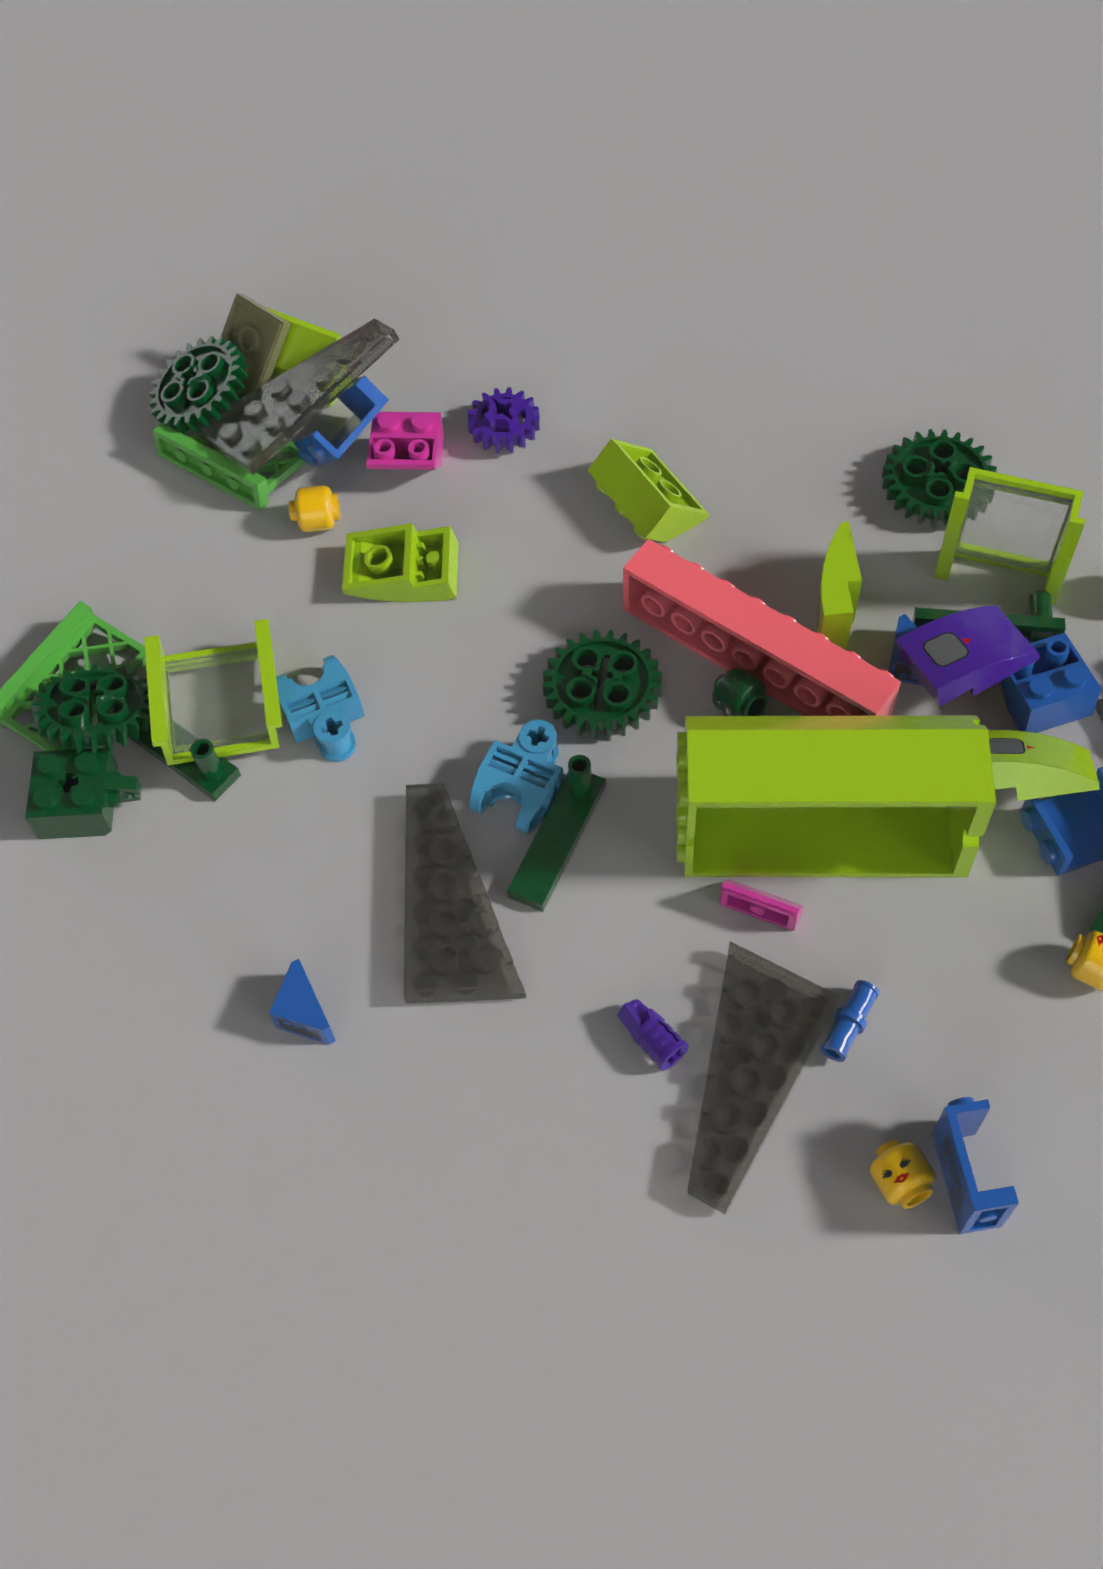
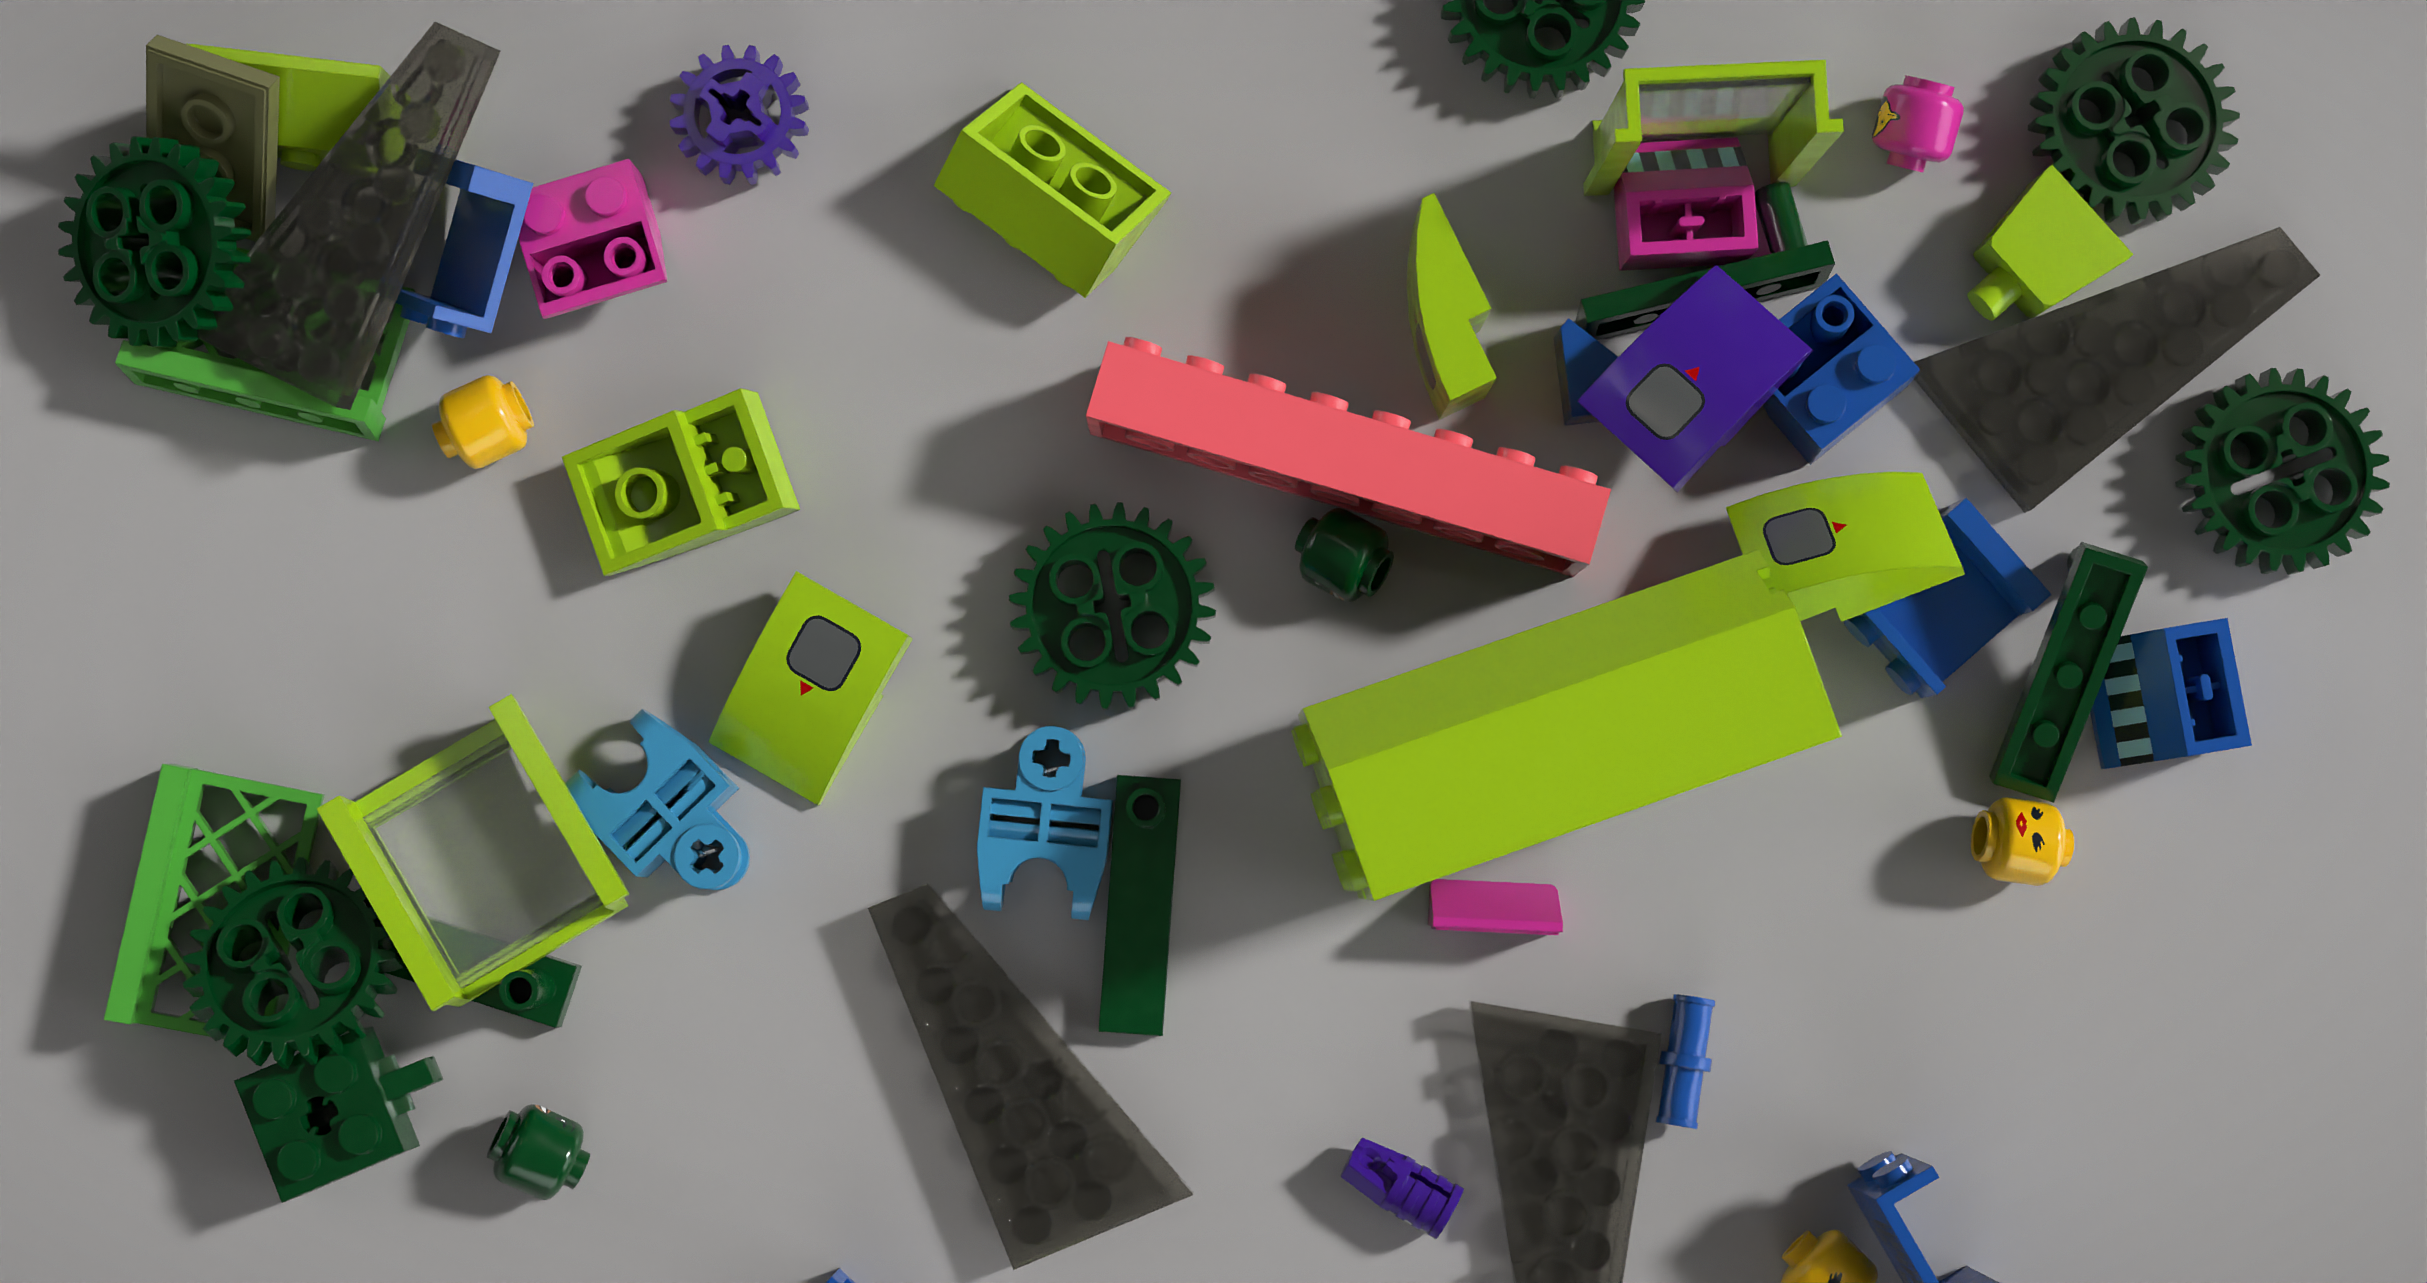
camera: 30 degrees left, 25 degrees up
(171, 849) = (538, 1152): none -> dark green head
(424, 672) = (808, 688): none -> lime slope
(986, 583) = (1685, 205): none -> dark pink slope

